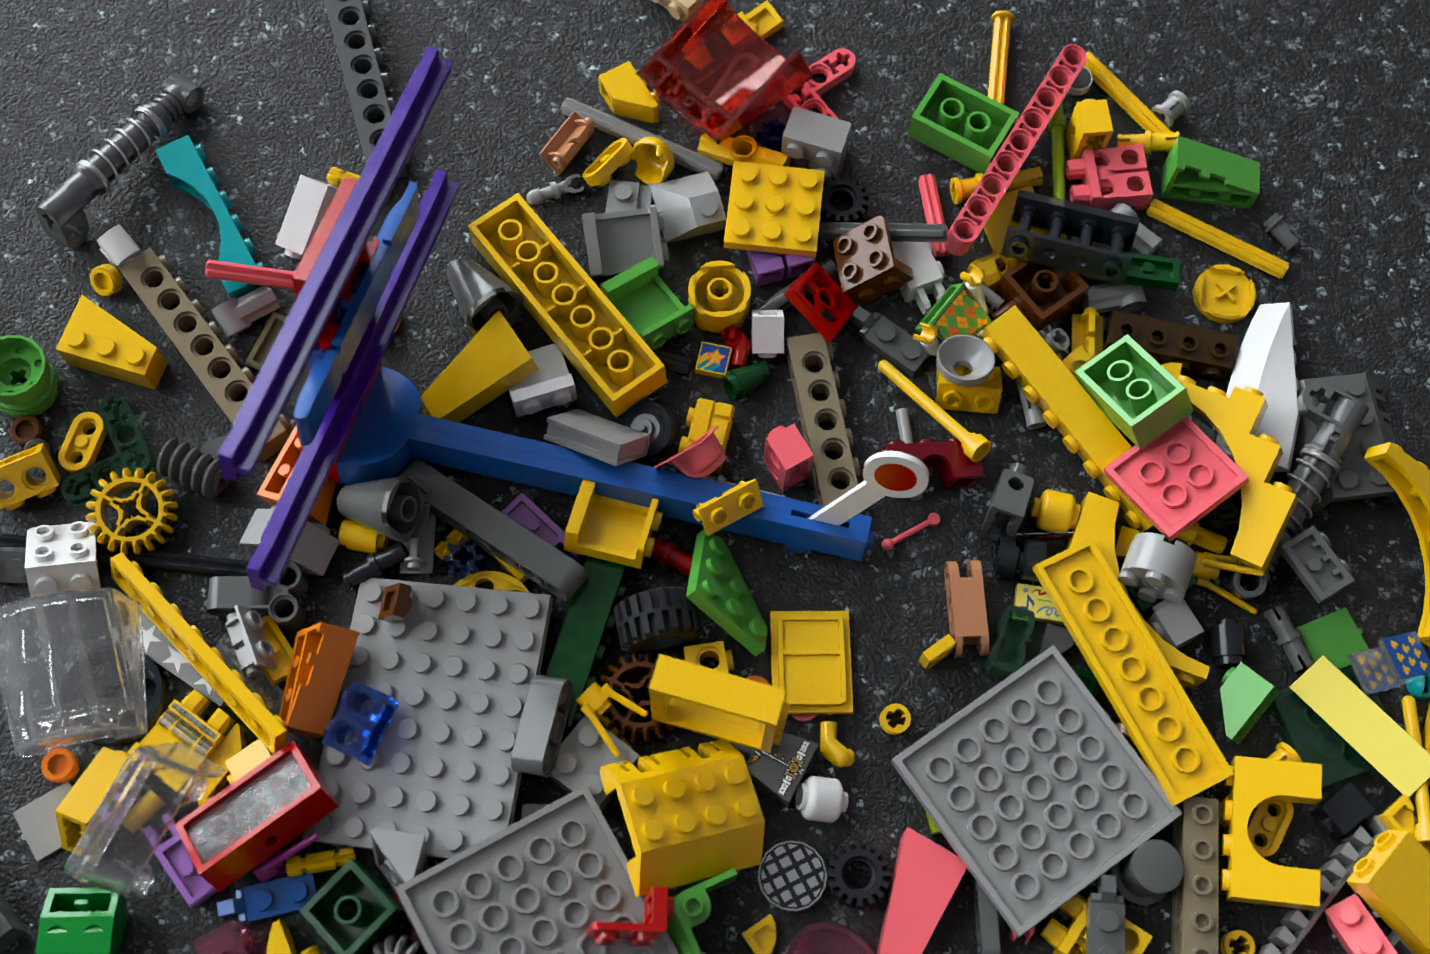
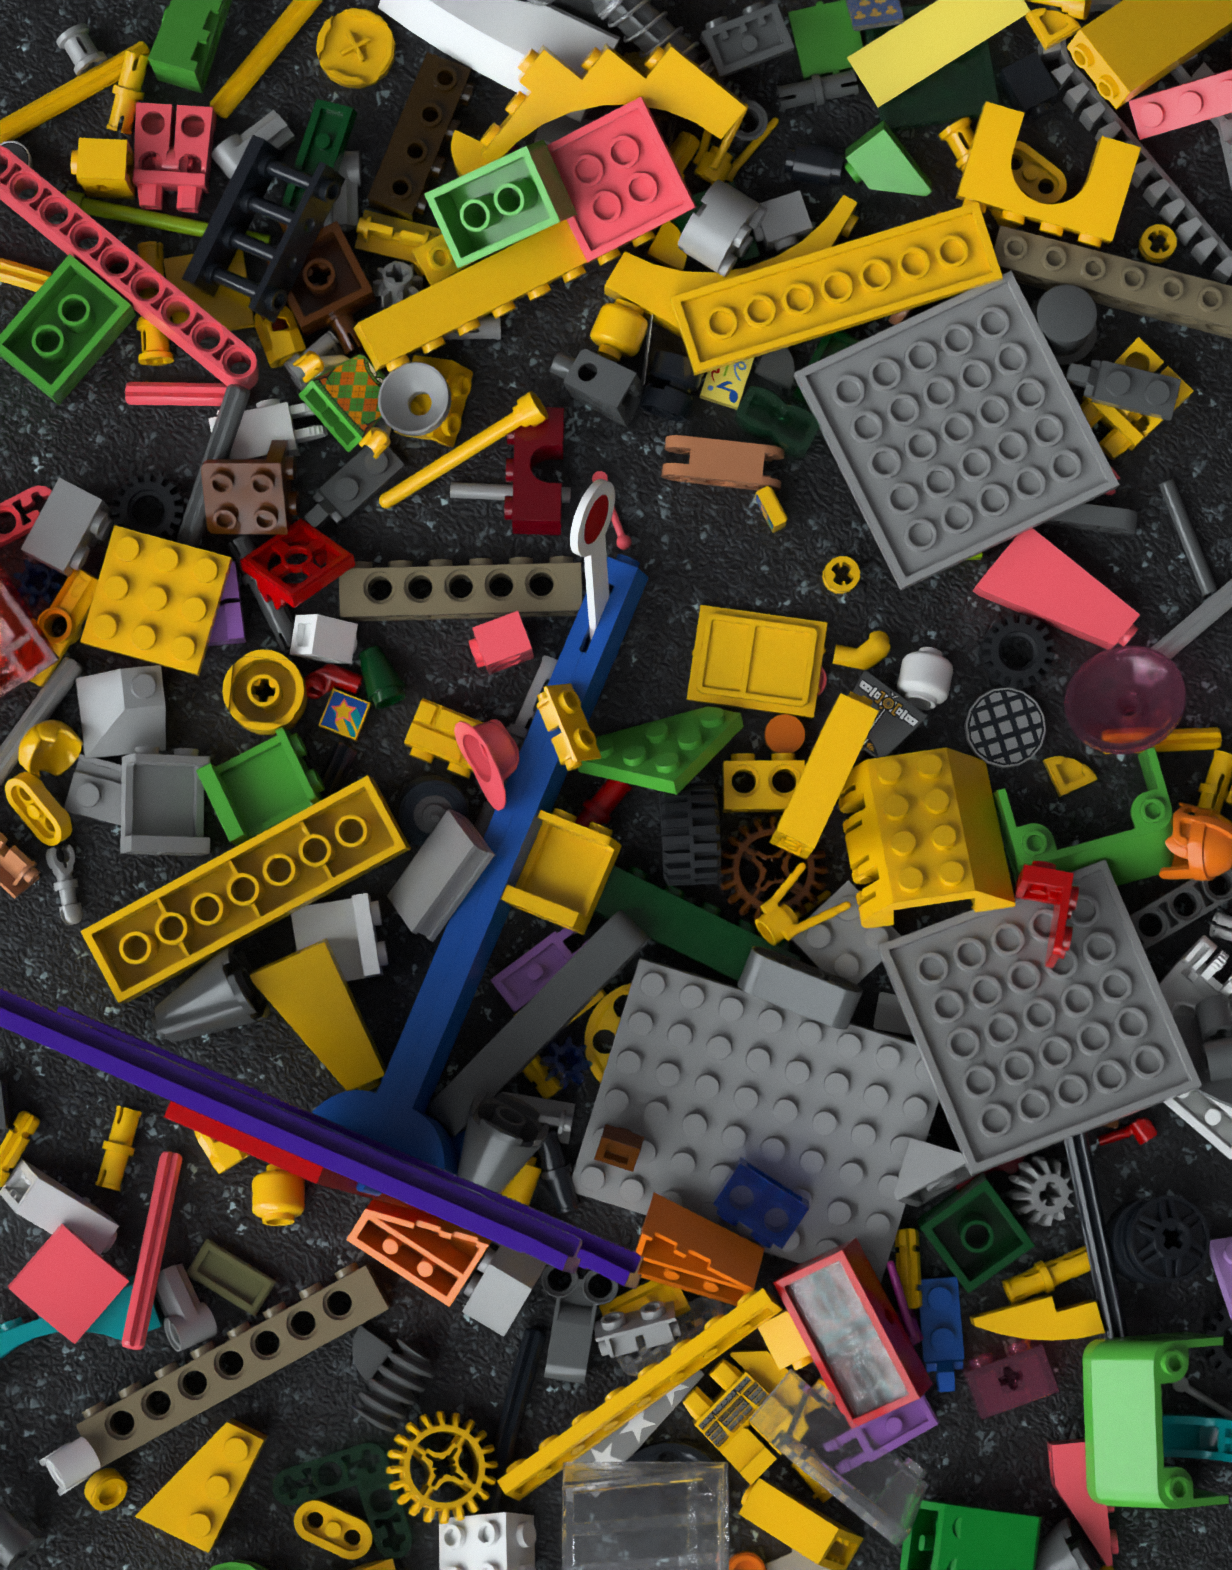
camera: 80 degrees left, 15 degrees up
(253, 222) = (68, 1283): none -> coral slope

